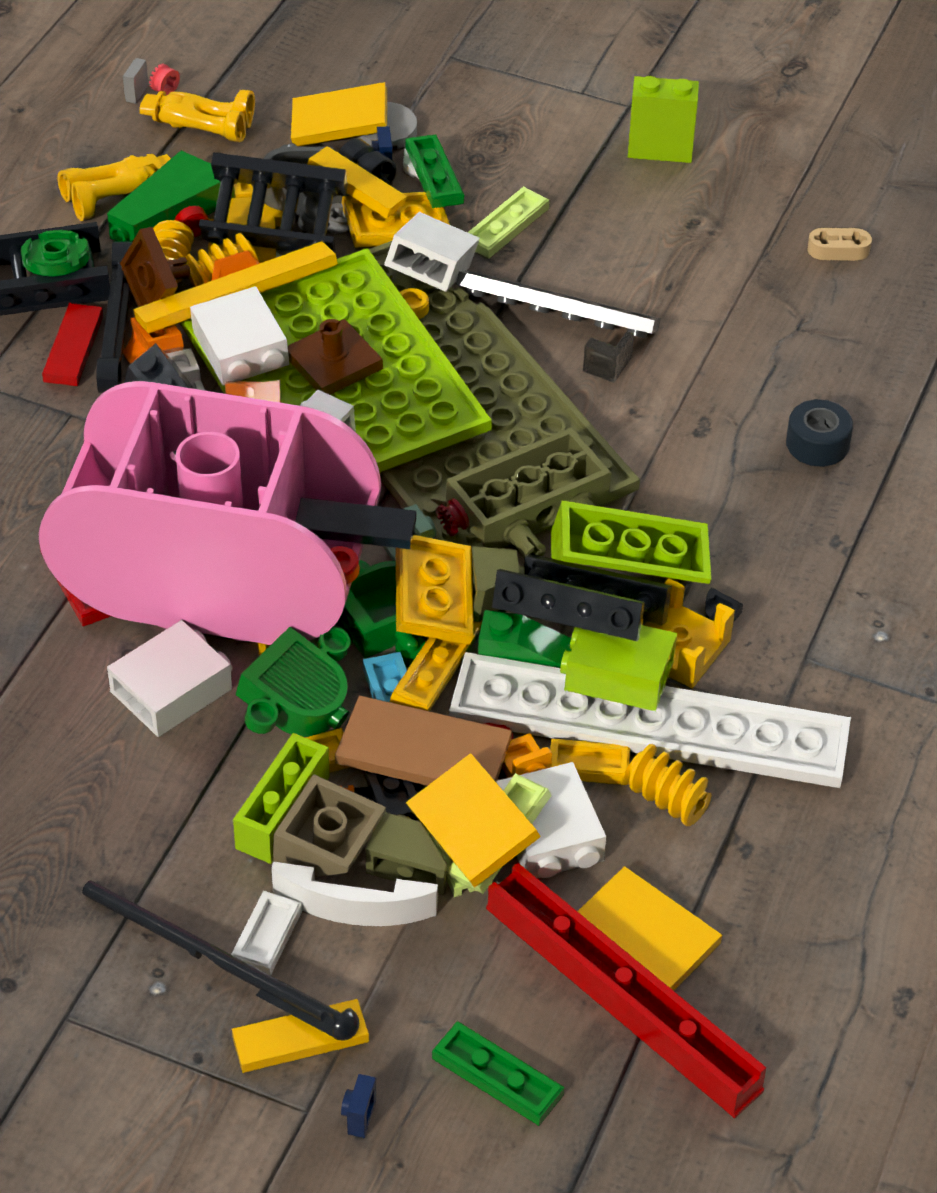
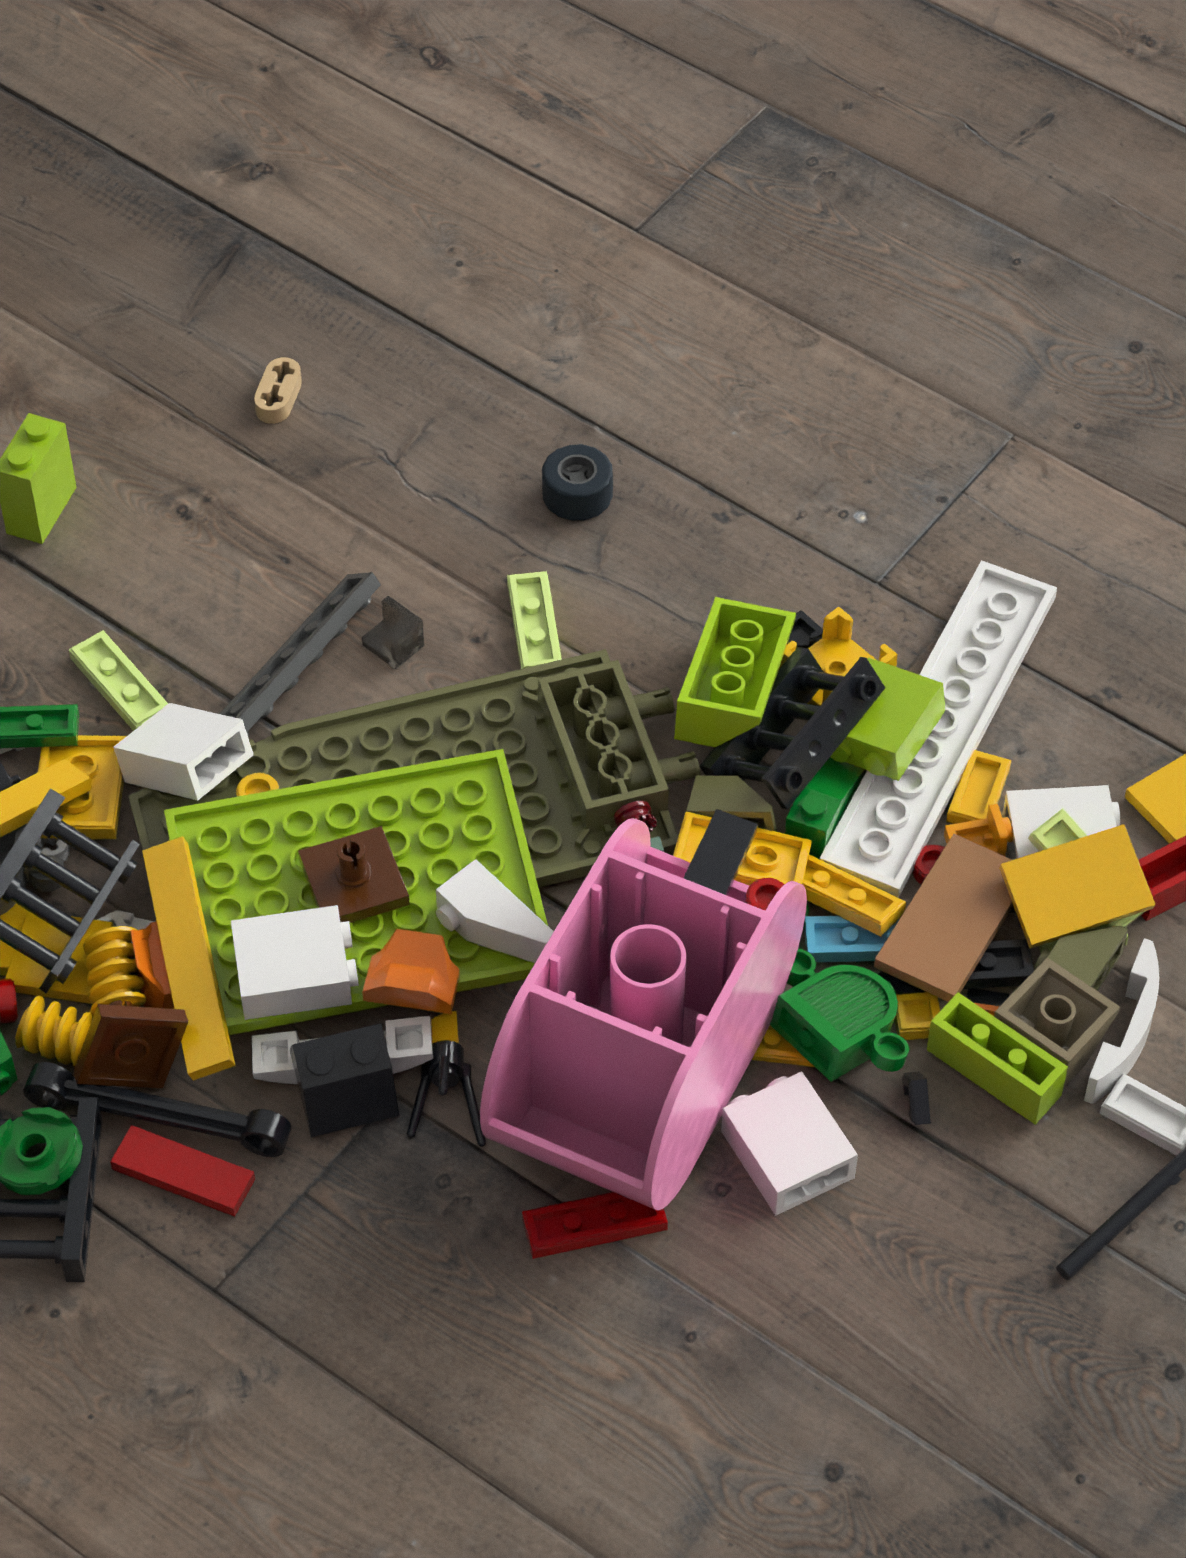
camera: 75 degrees left, 5 degrees up
(167, 339) = (226, 1089): orange slope -> none
(240, 758) = (916, 1088): none -> black tile
(662, 438) = (533, 619): none -> yellowish green tile
(667, 785) = (1036, 725): yellow piece -> none

